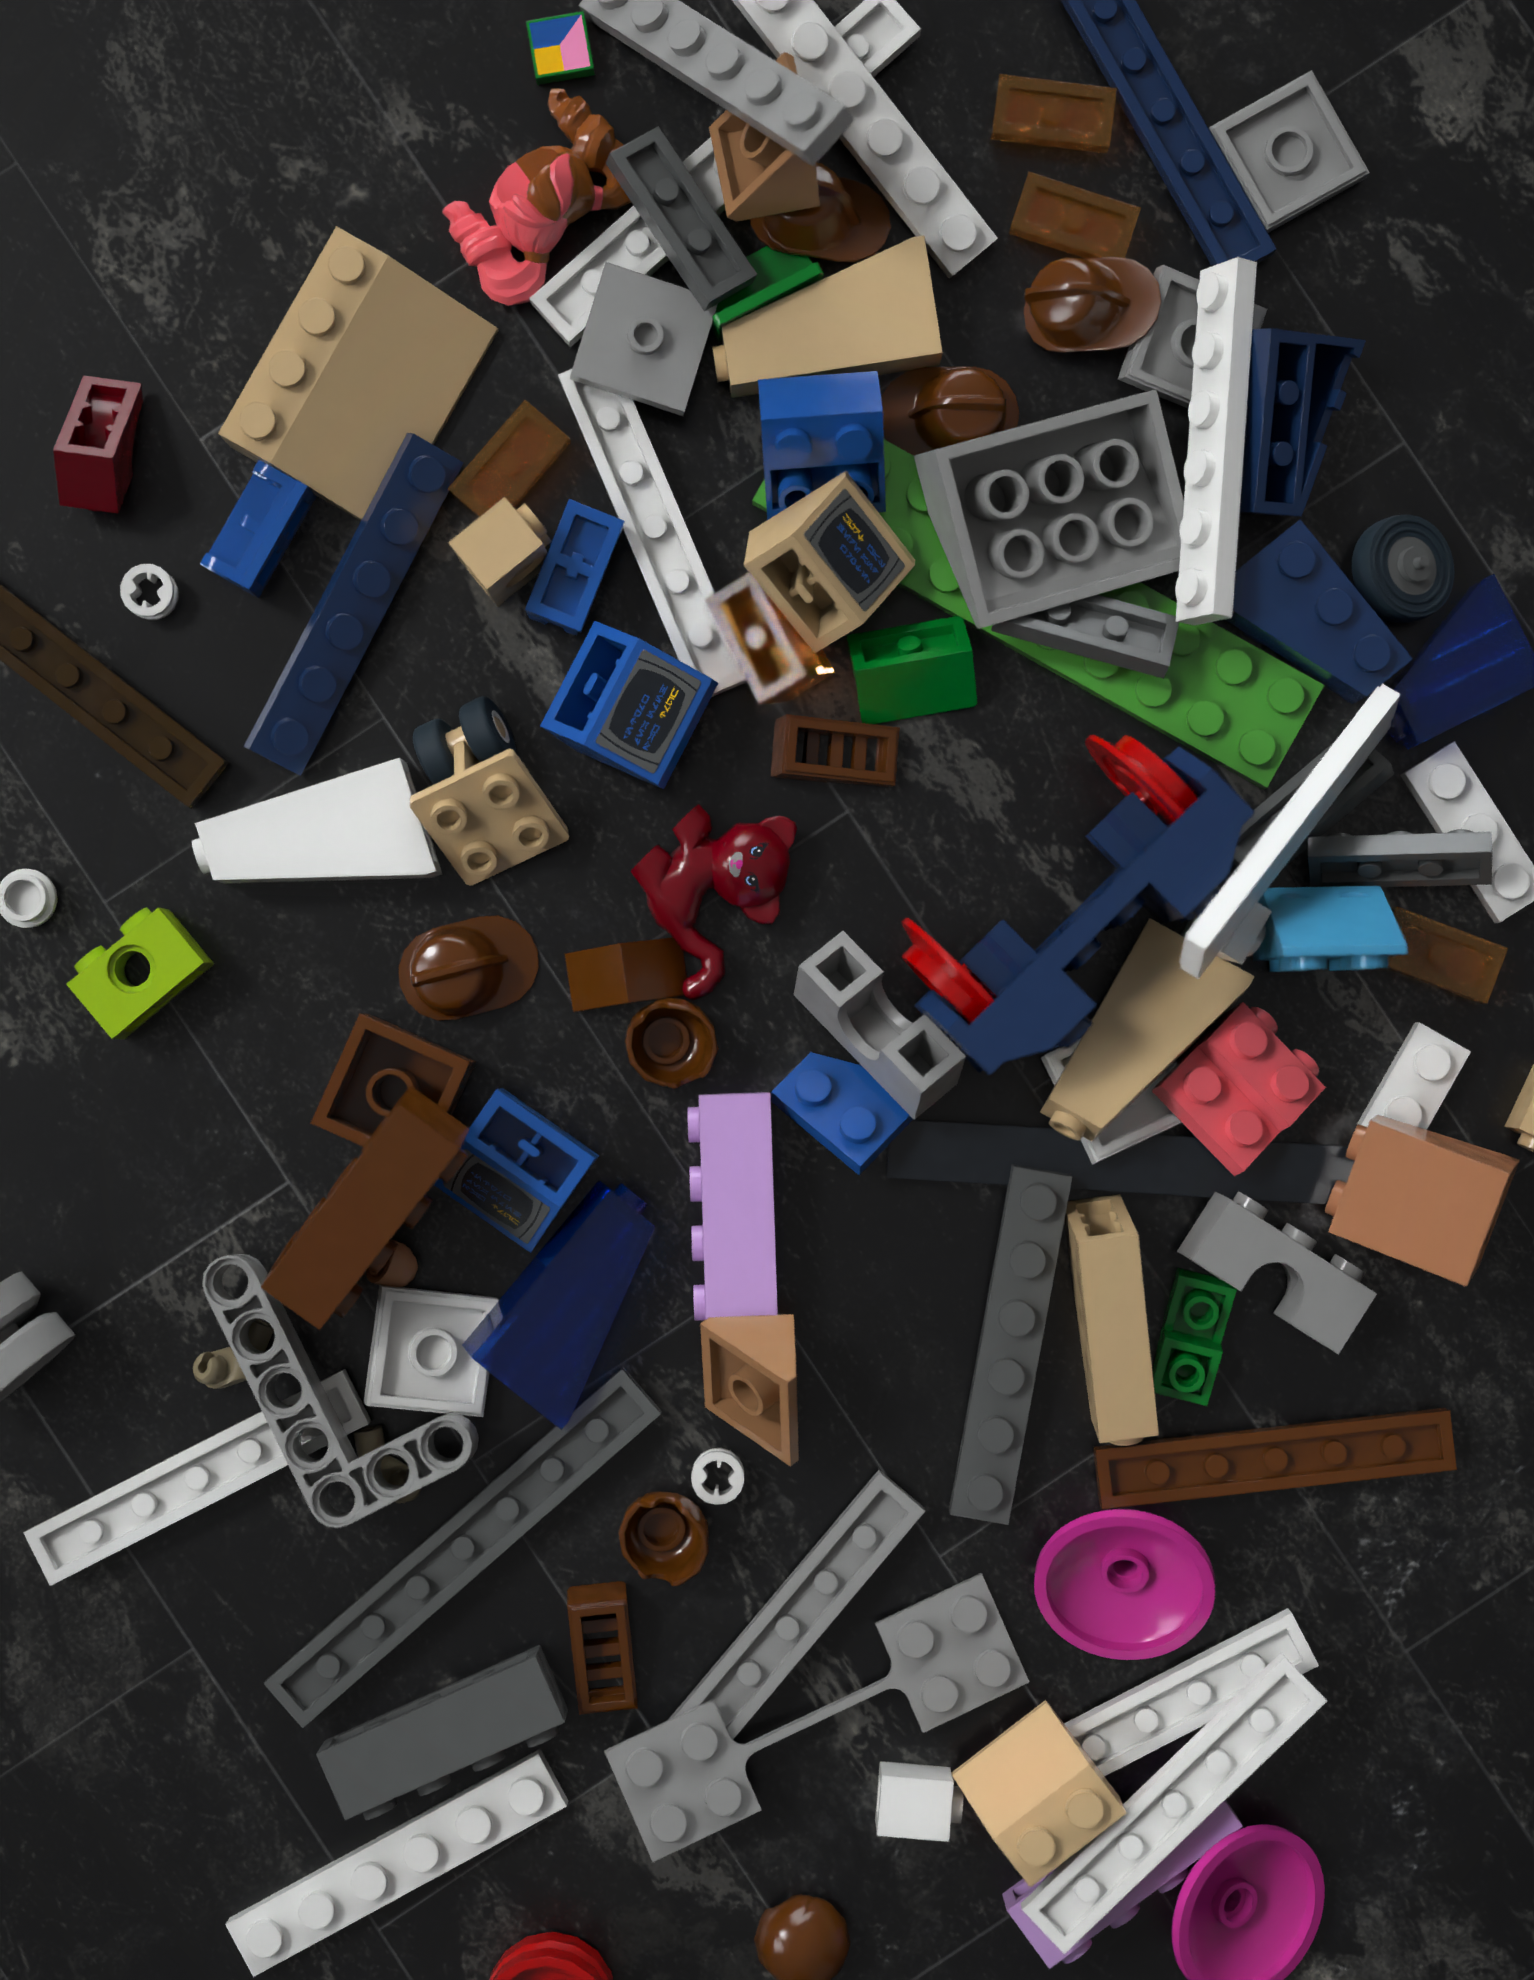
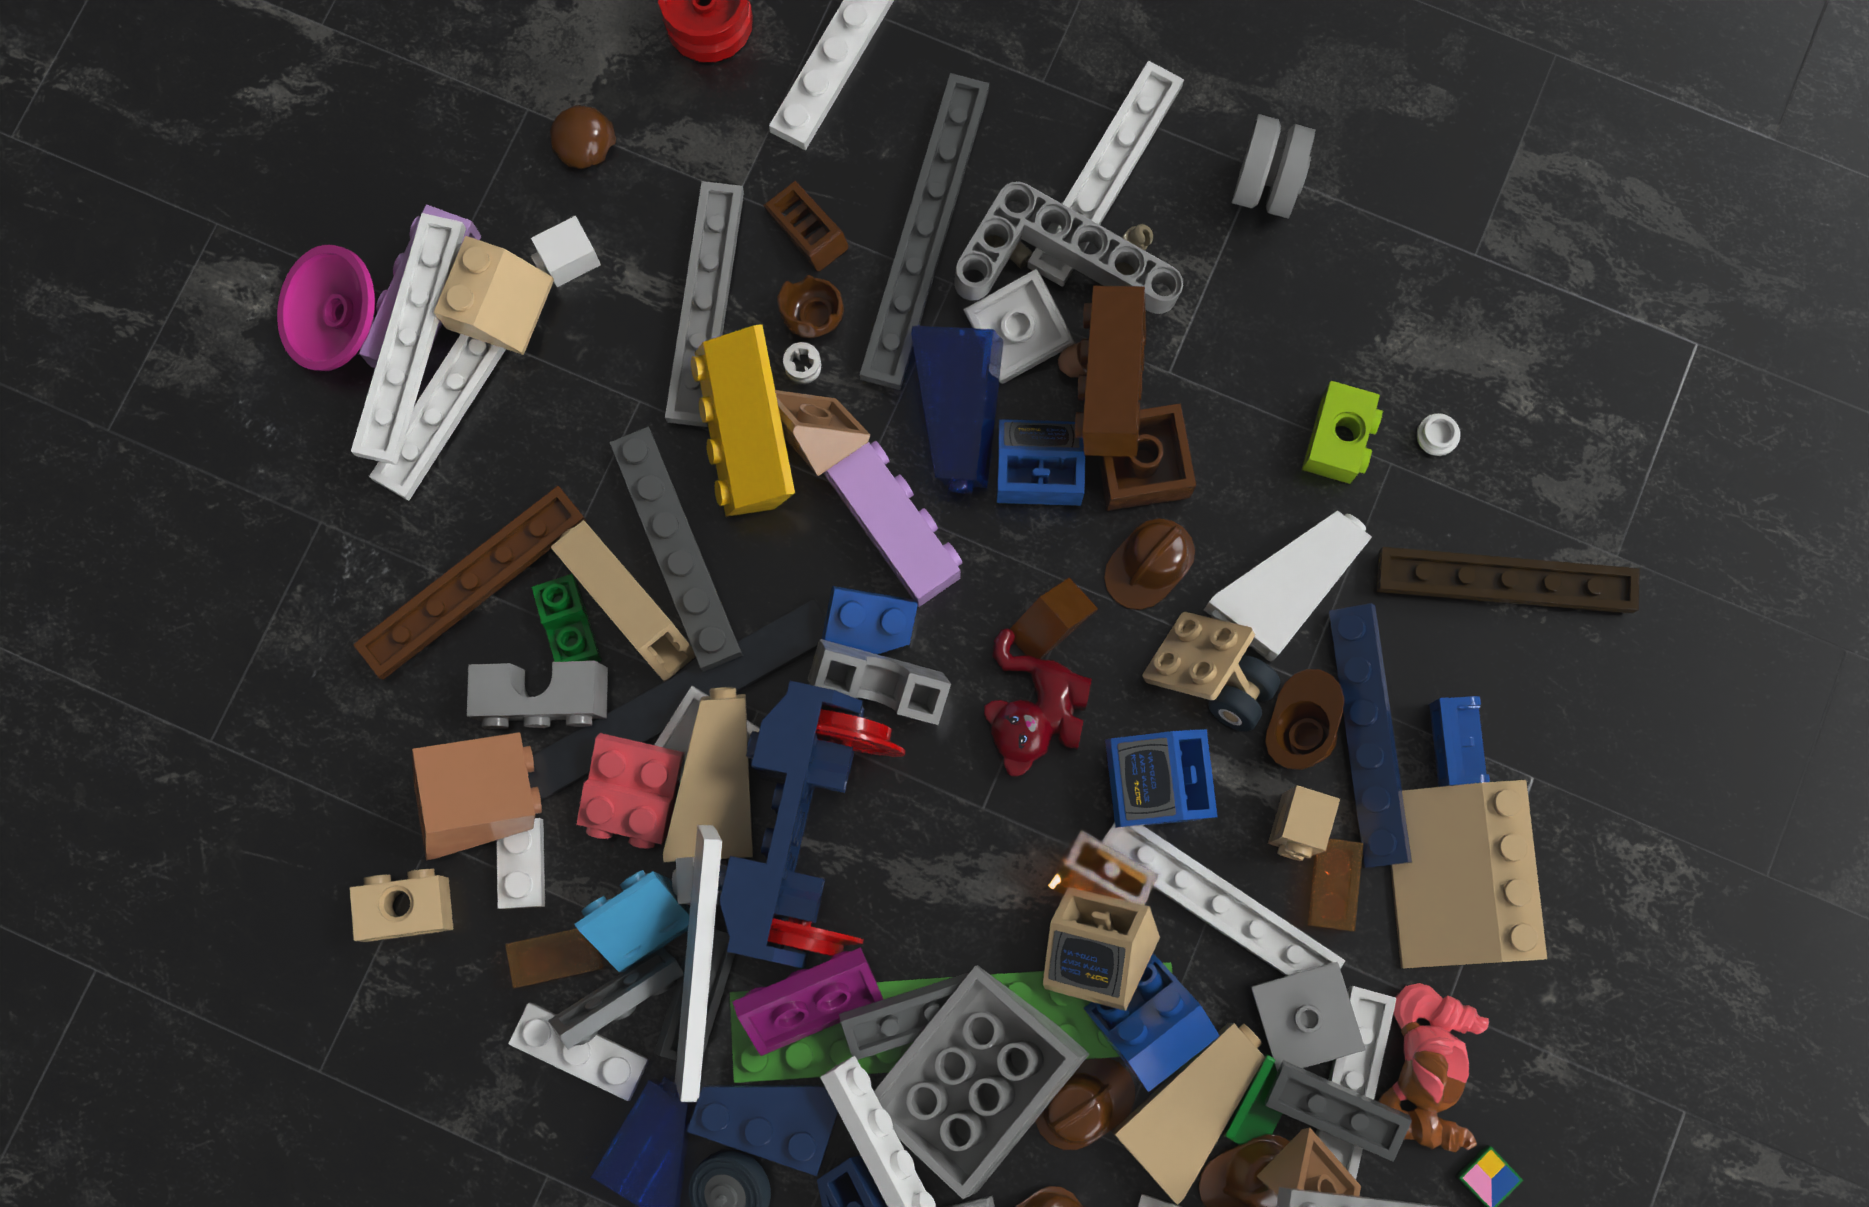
camera: 145 degrees right, 10 degrees down
(98, 444) = (1593, 728): dark red arch -> none
(131, 590) = (1509, 657): white bush -> none
(419, 665) = (1305, 720): none -> reddish brown piece
(442, 1734) = (866, 120): dark grey brick -> none
(574, 567) = (1252, 843): blue hinge -> none
(671, 1042) = (998, 593): reddish brown hair -> none
(692, 1776) = (600, 343): light grey hinge -> none
(785, 751) = (981, 855): reddish brown slope -> none
(840, 1439) = (742, 422): none -> yellow slope
(913, 670) = (1001, 921): green panel -> none
(1119, 1605) = (516, 448): dark pink dish -> none
(1192, 711) = (807, 1001): none -> magenta plate

